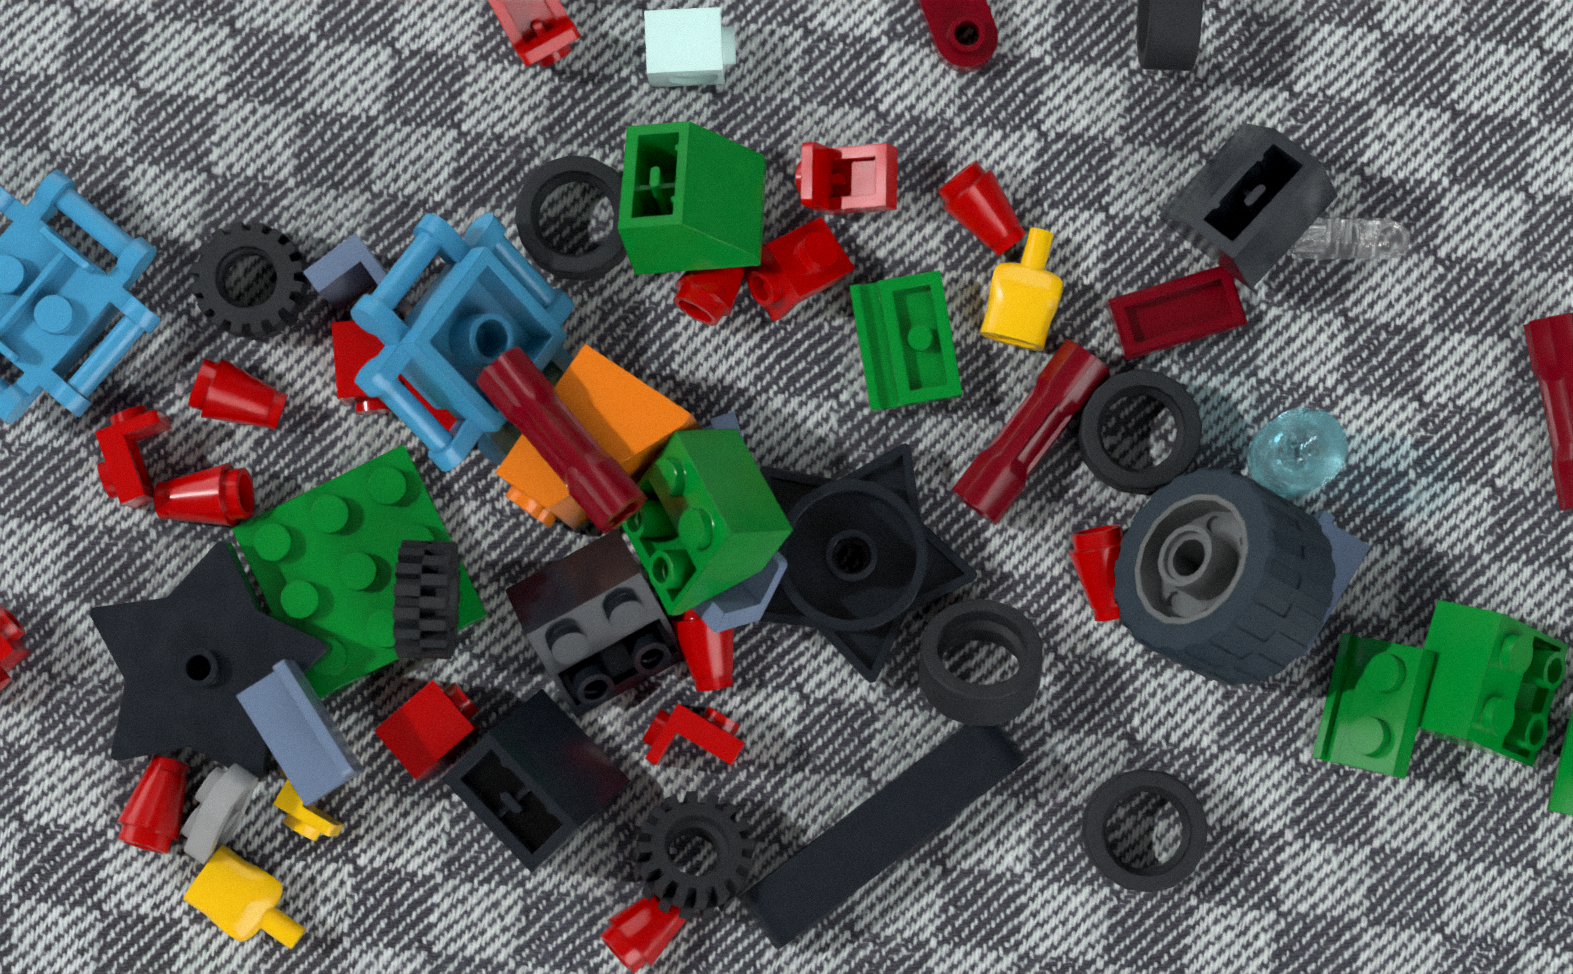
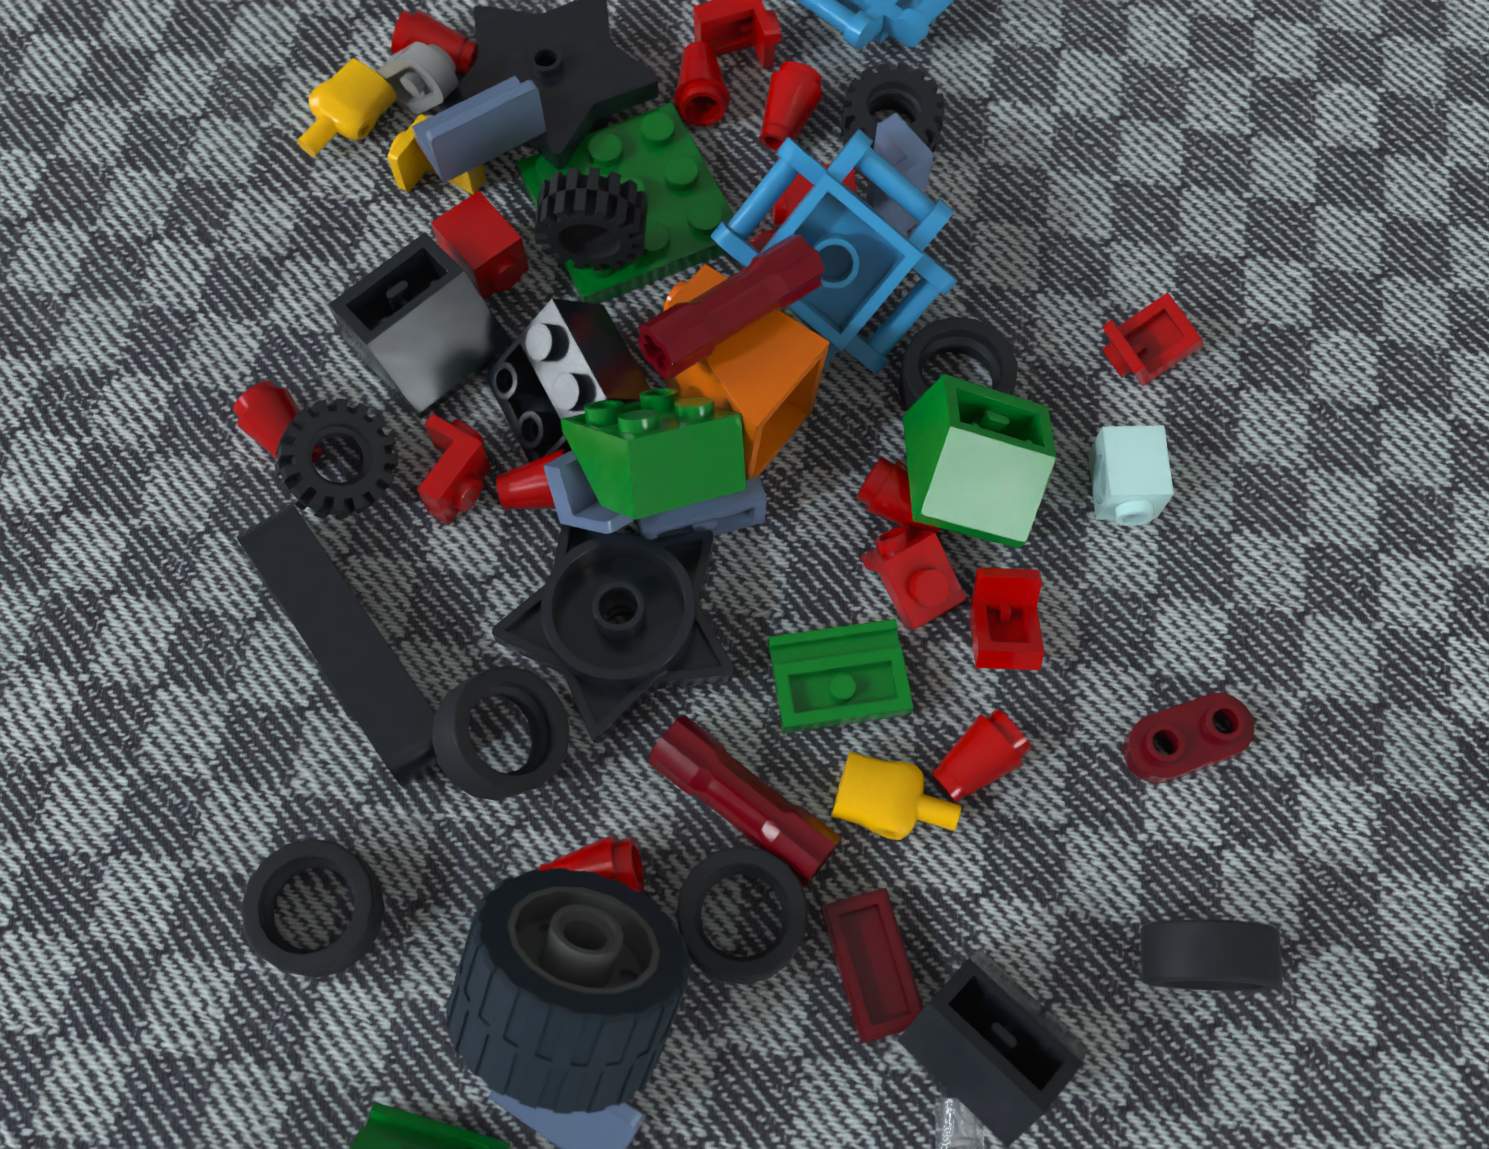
camera: 85 degrees right, 15 degrees down
(1320, 448) = (699, 1055): clear light blue piece -> none

